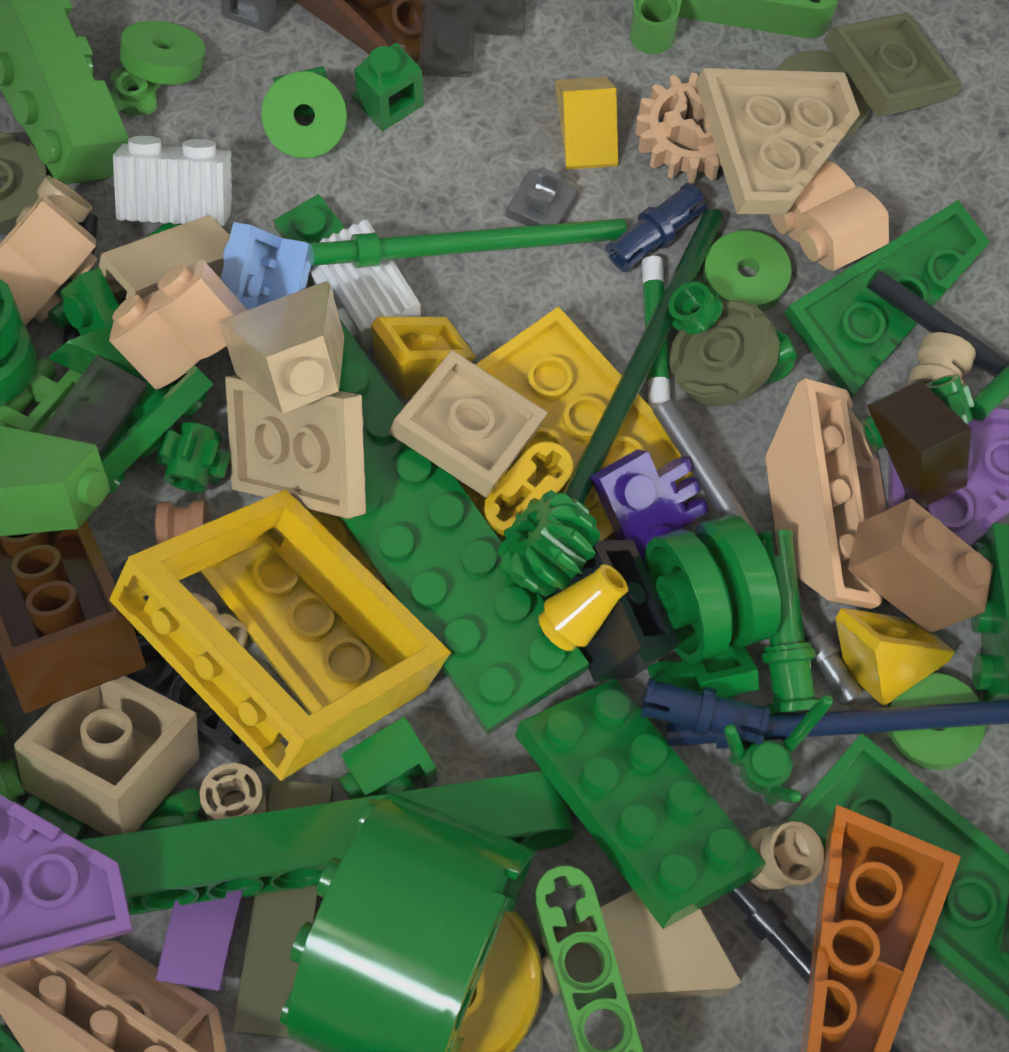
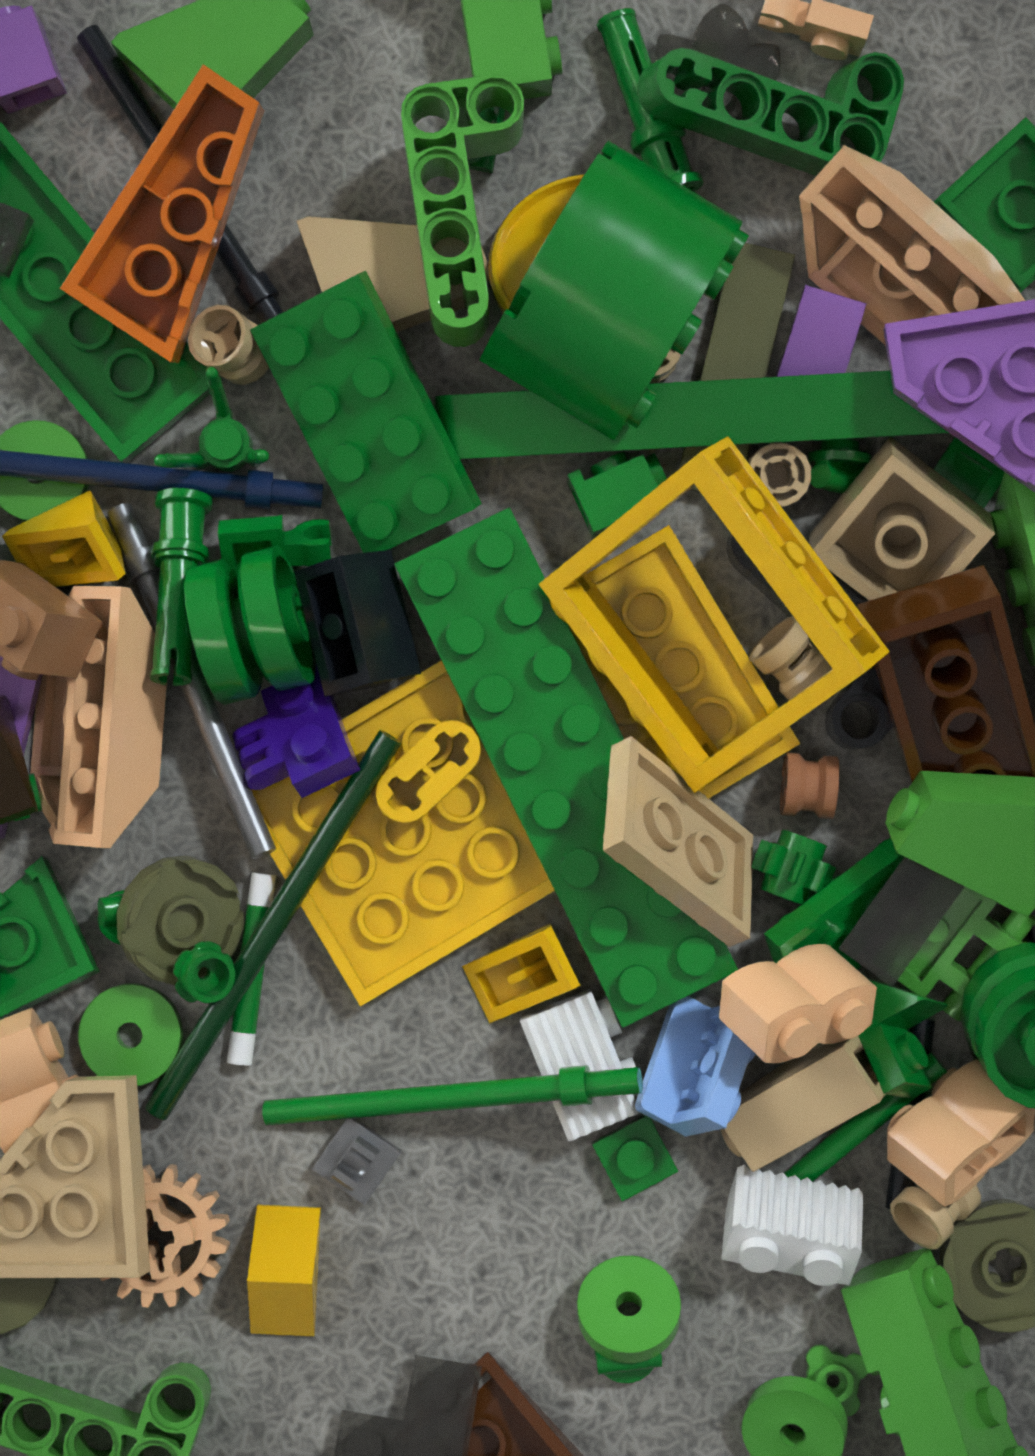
camera: 170 degrees left, 20 degrees up
(289, 347) = (672, 936): tan slope -> none
(383, 75) = (522, 1338): green brick -> none
(468, 423) = (484, 850): tan plate -> none
(548, 543) = (418, 685): green gear -> none
(580, 610) = (396, 609): yellow cone -> none
(656, 227) = (227, 1104): dark blue pin -> none
(704, 711) = (281, 496): dark blue pin -> none

